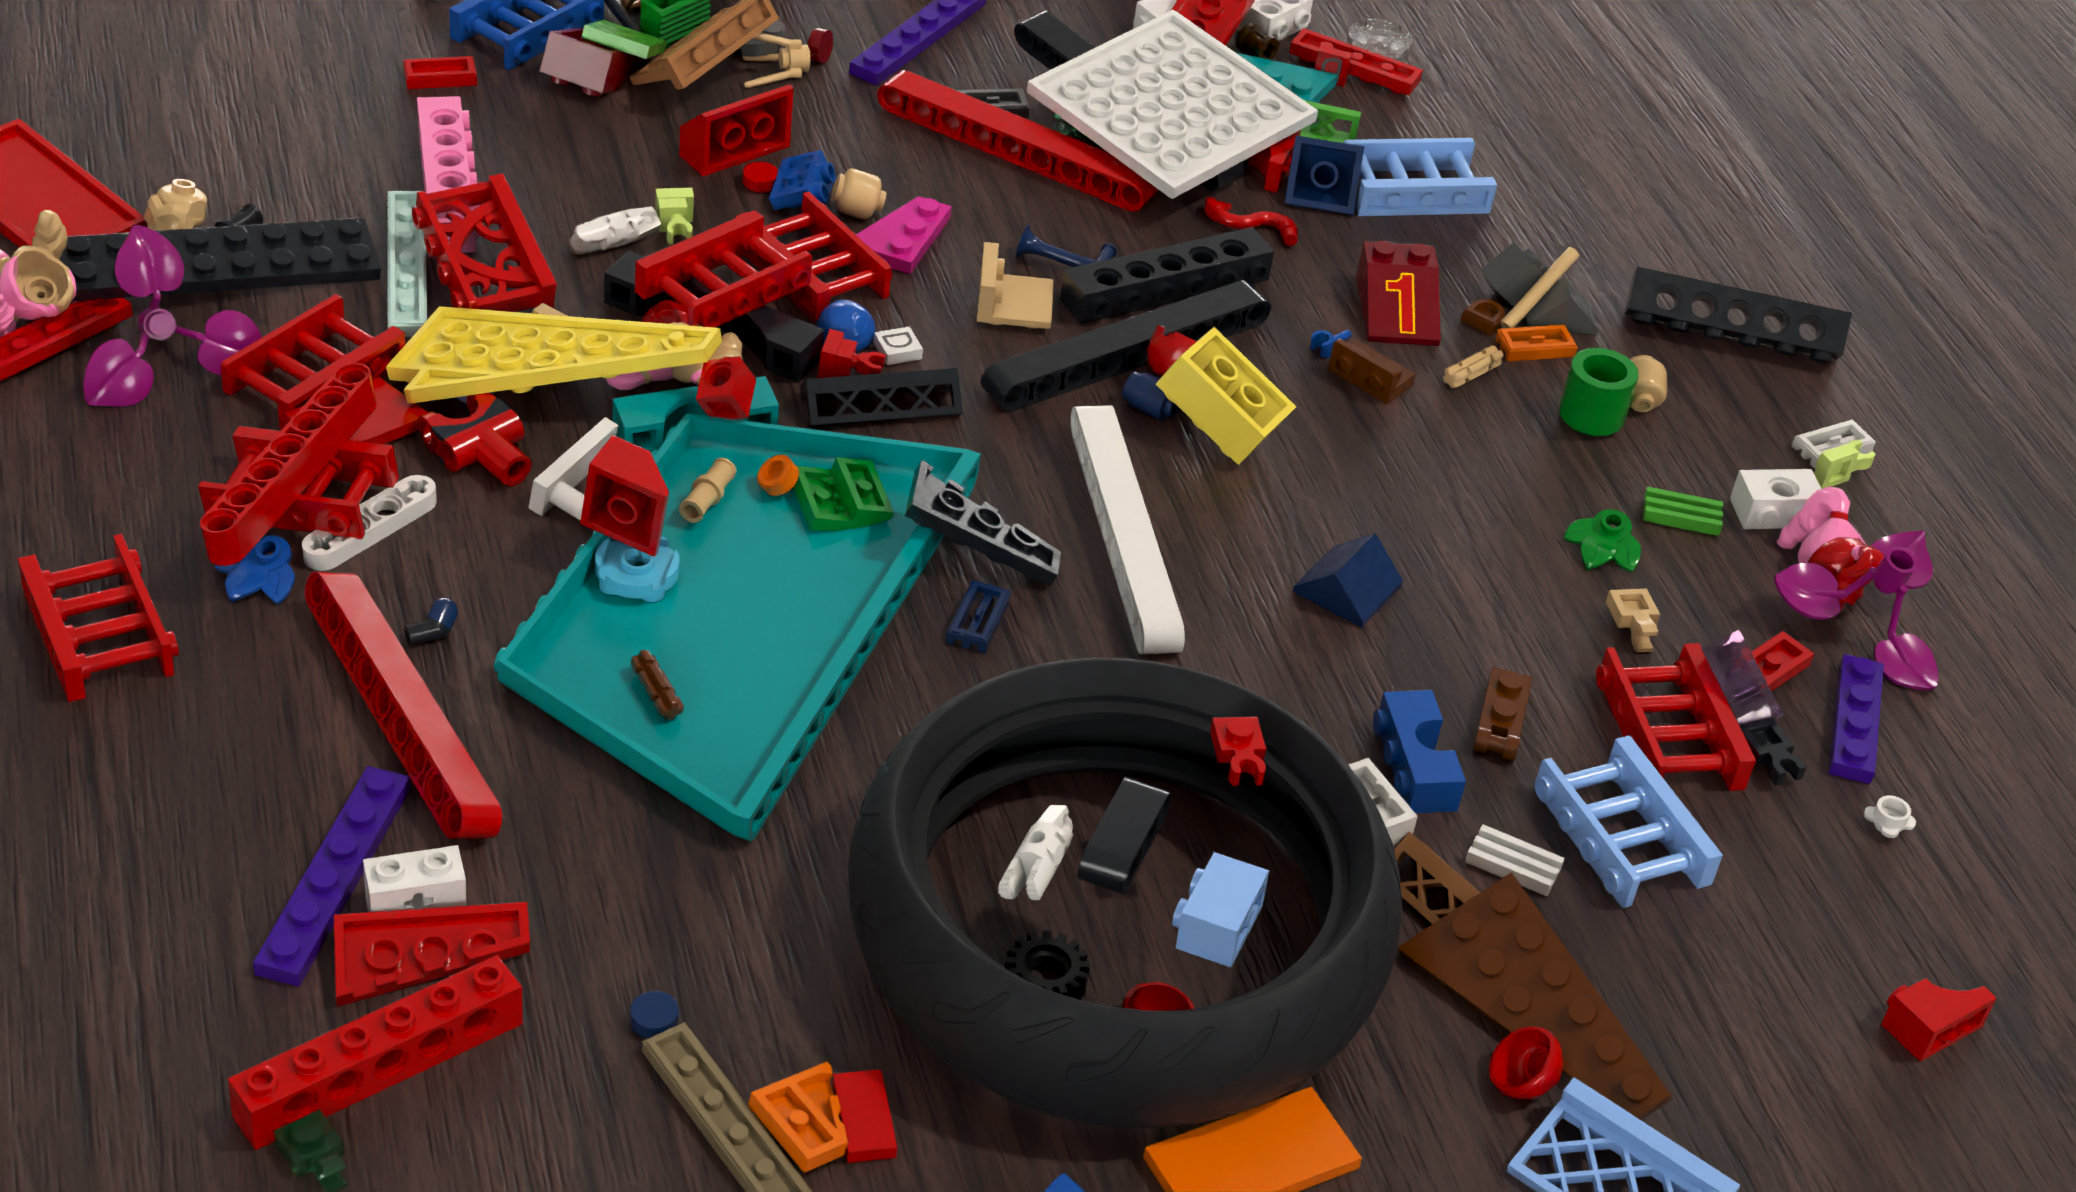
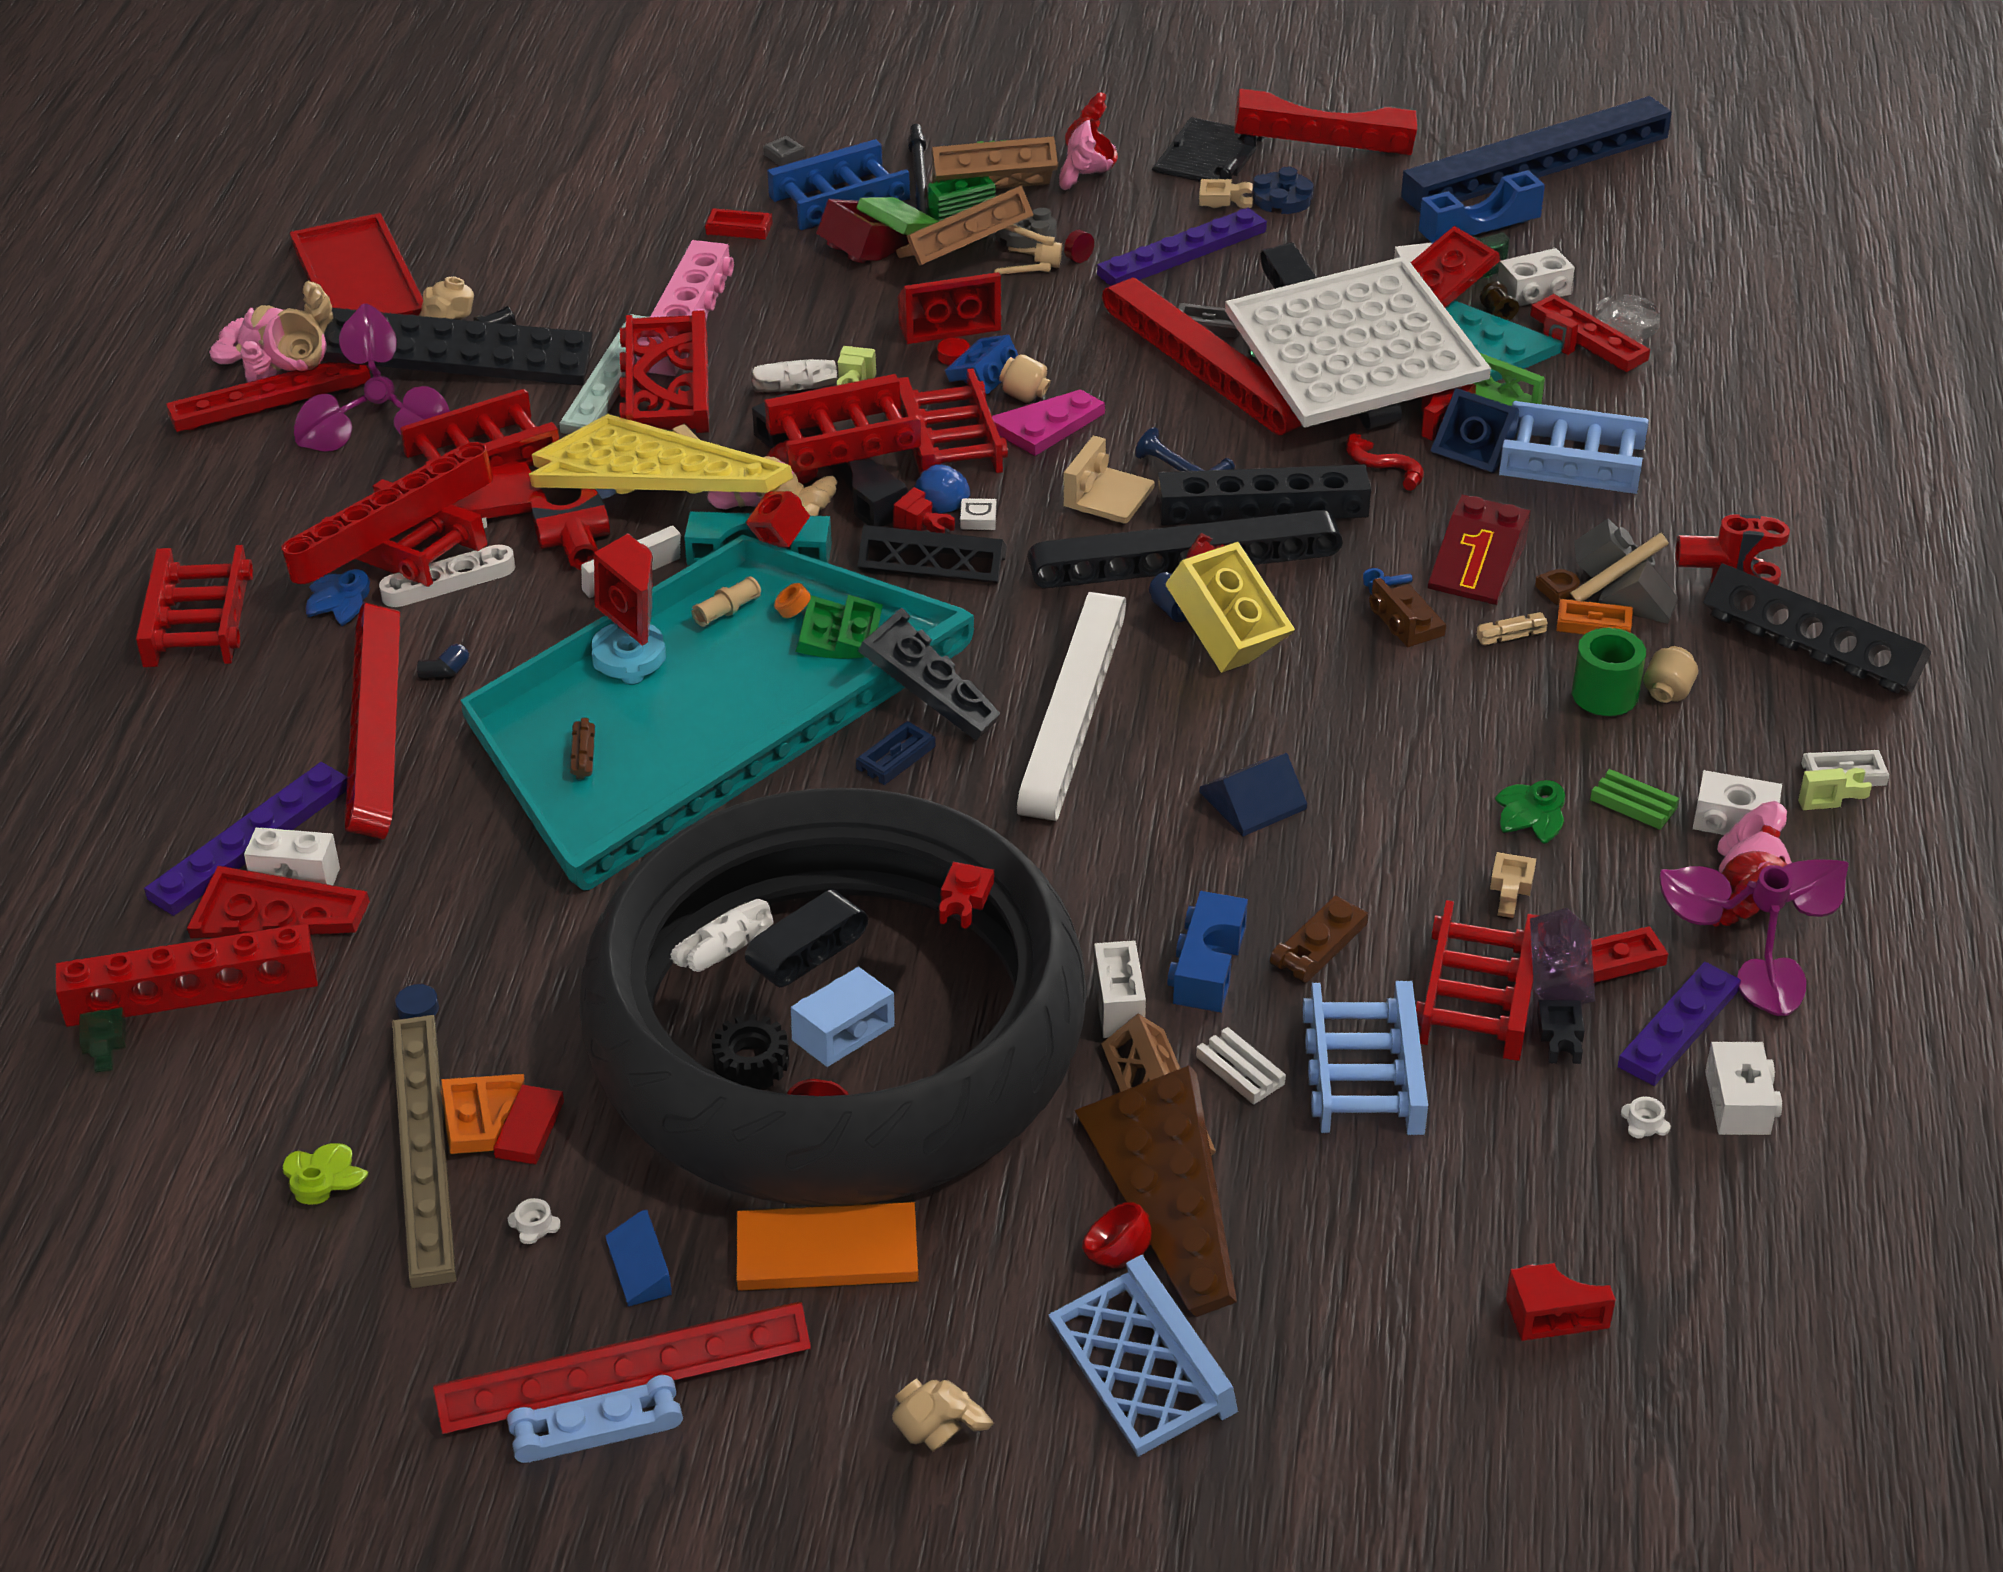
camera: 30 degrees right, 0 degrees up
(1634, 247) = (1736, 546): none -> red connector
(1952, 767) = (1742, 1088): none -> white brick

